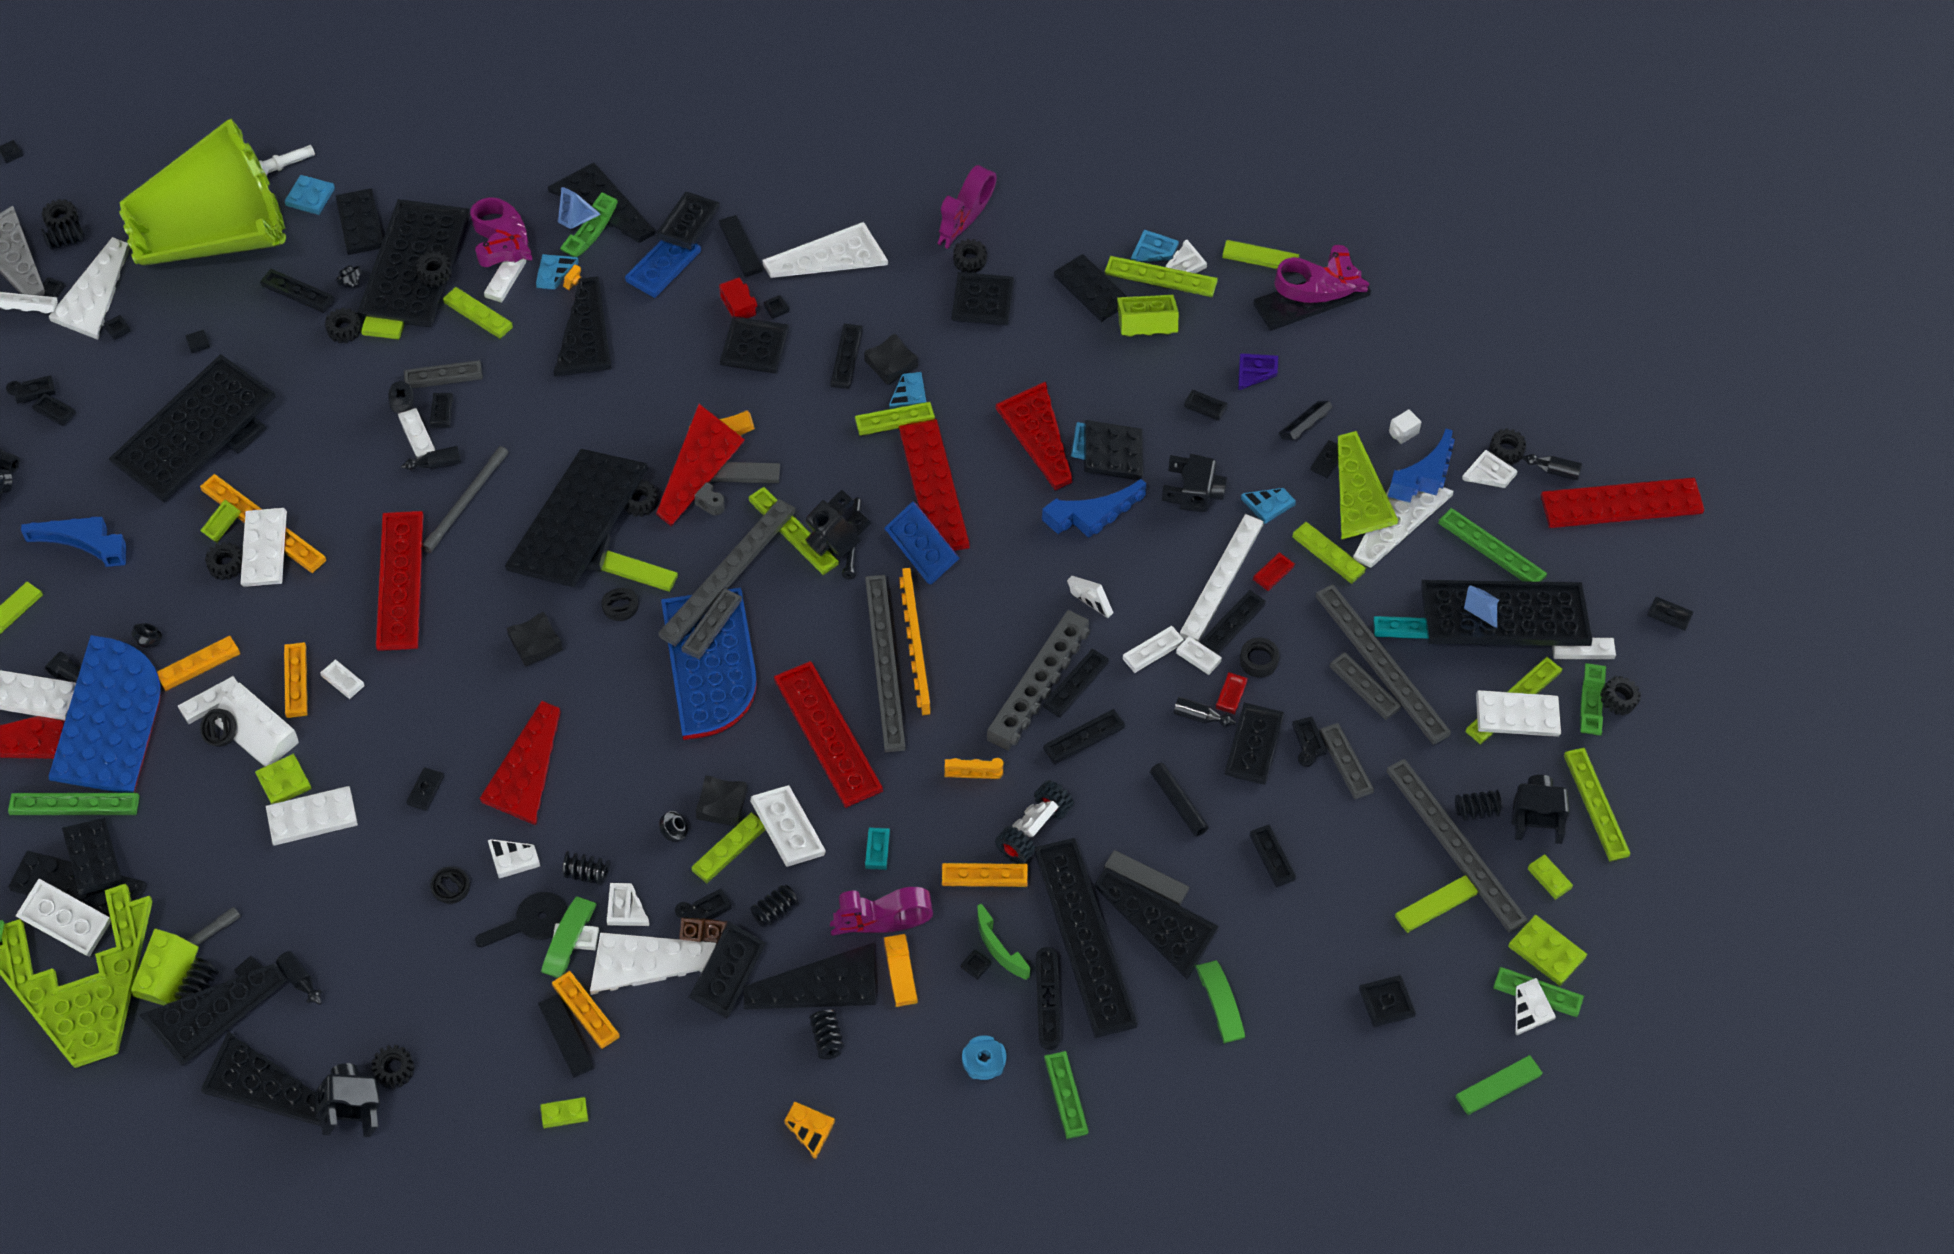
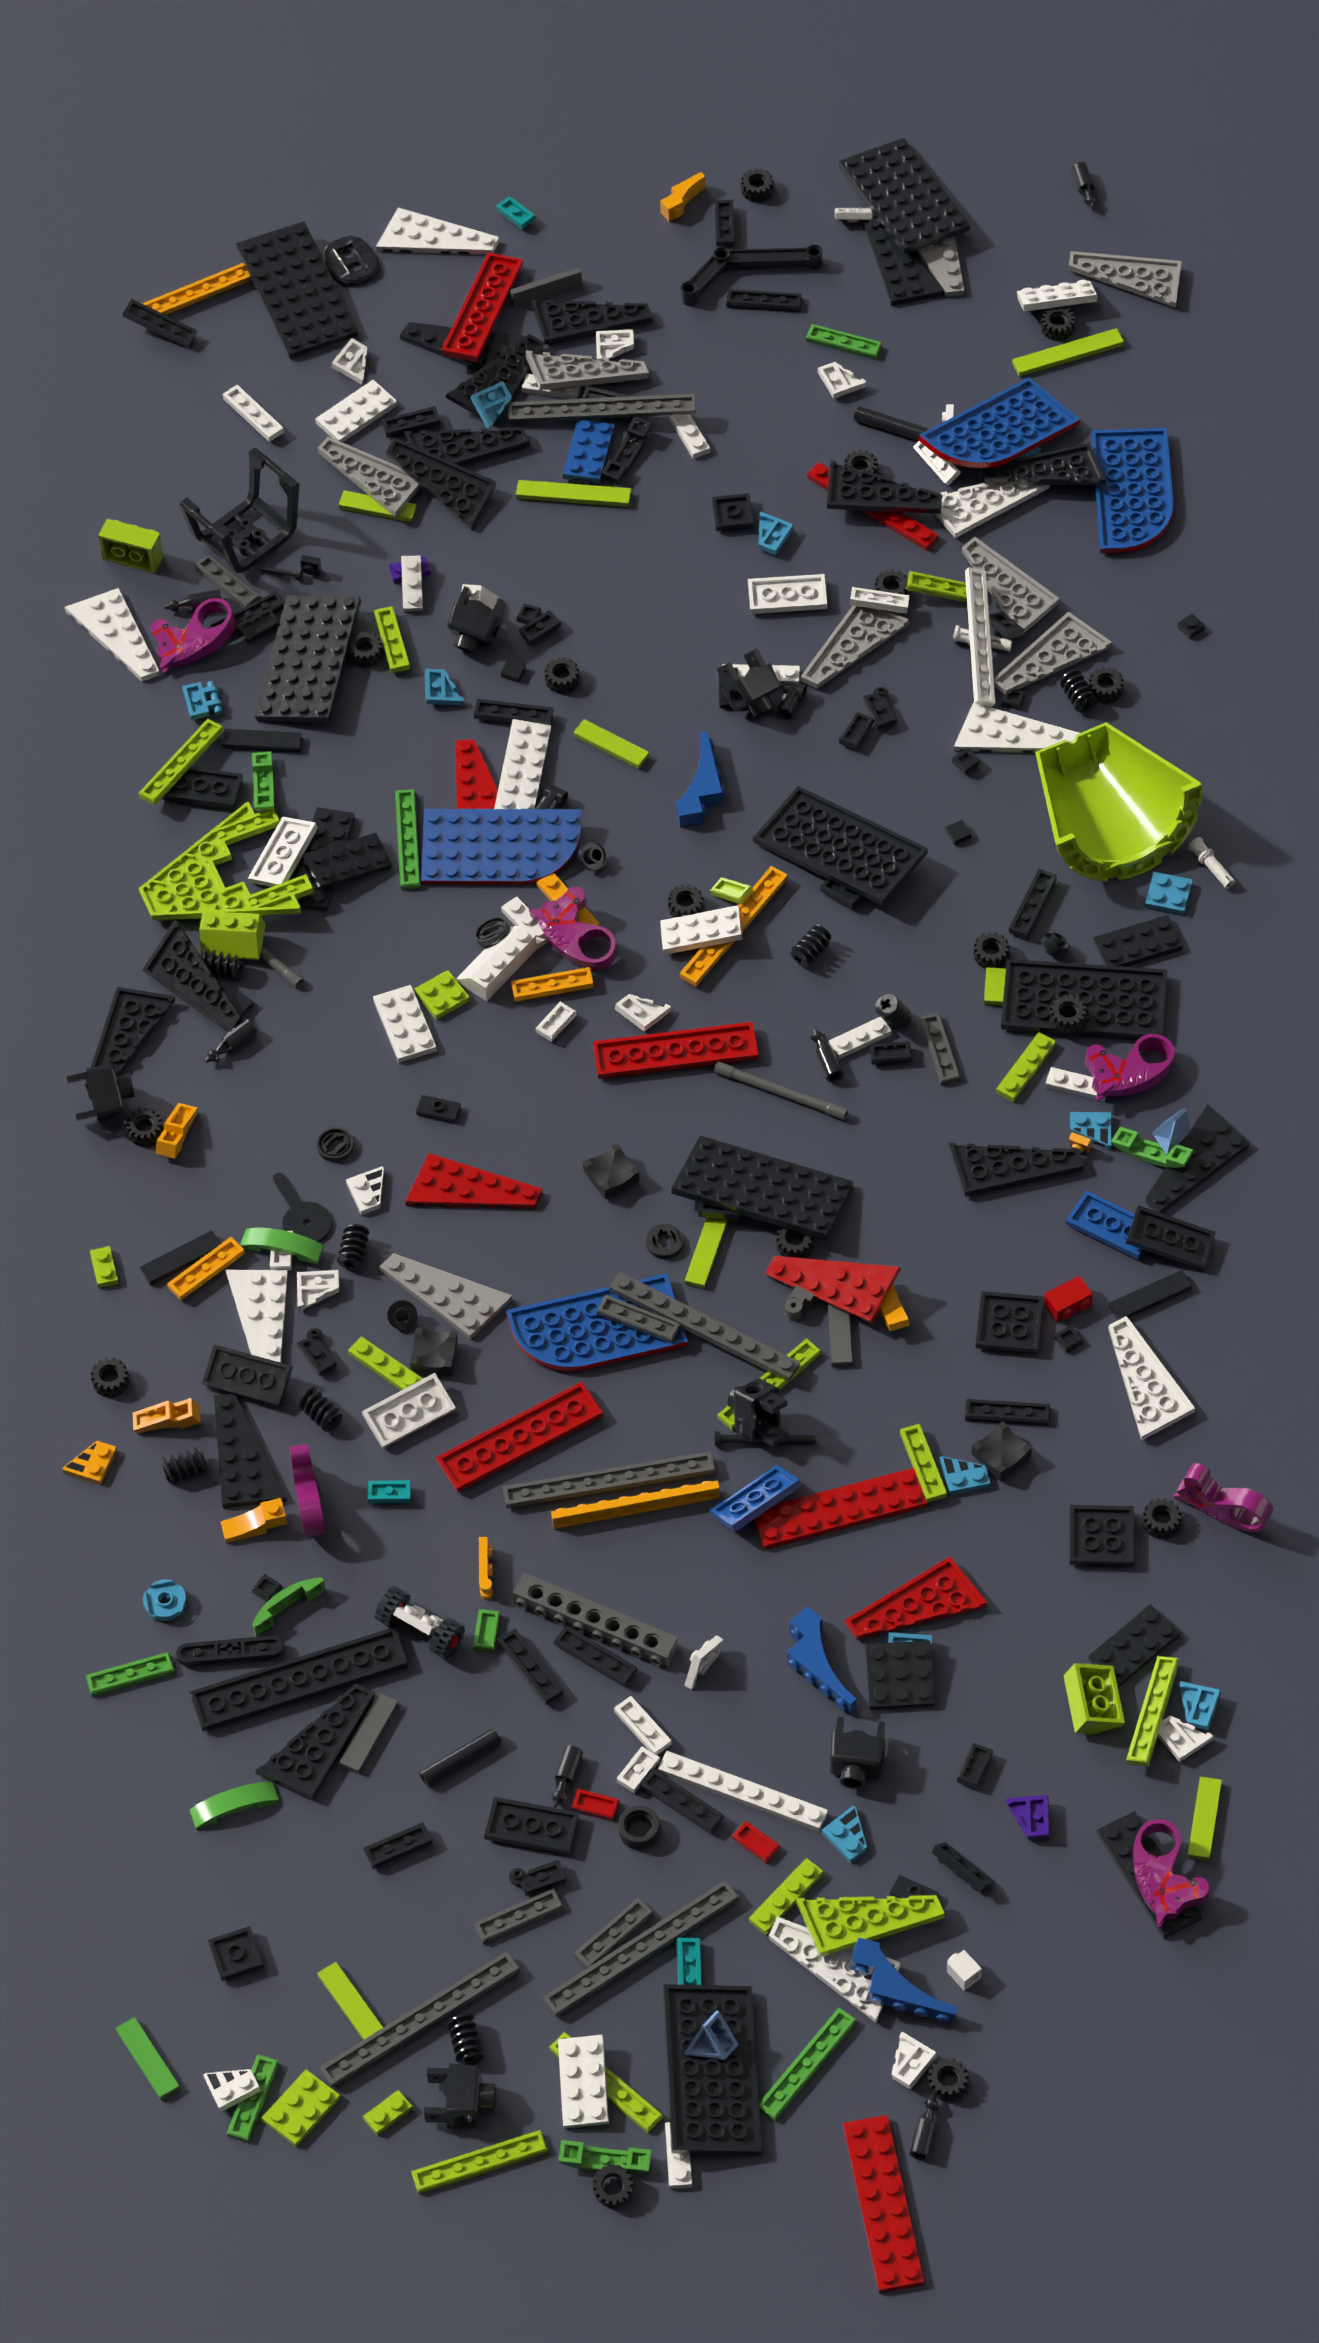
camera: 90 degrees right, 0 degrees up
(241, 660) = (564, 932): none -> magenta animal
(305, 460) = (810, 945): none -> black piece
(347, 605) = (641, 1011): none -> white wing
(405, 1033) = (175, 1130): none -> light orange slope
(657, 783) = (455, 1299): none -> light grey wing
(701, 929) = (291, 1349): reddish brown slope -> none
(703, 1094) = (113, 1387): none -> black tyre
(765, 1051) = (167, 1415): none -> light orange slope
(984, 875) = (363, 1587): light orange plate -> none
(1038, 772) = (486, 1630): none -> bright green tile
(1670, 613) = (729, 2245): black plate -> none

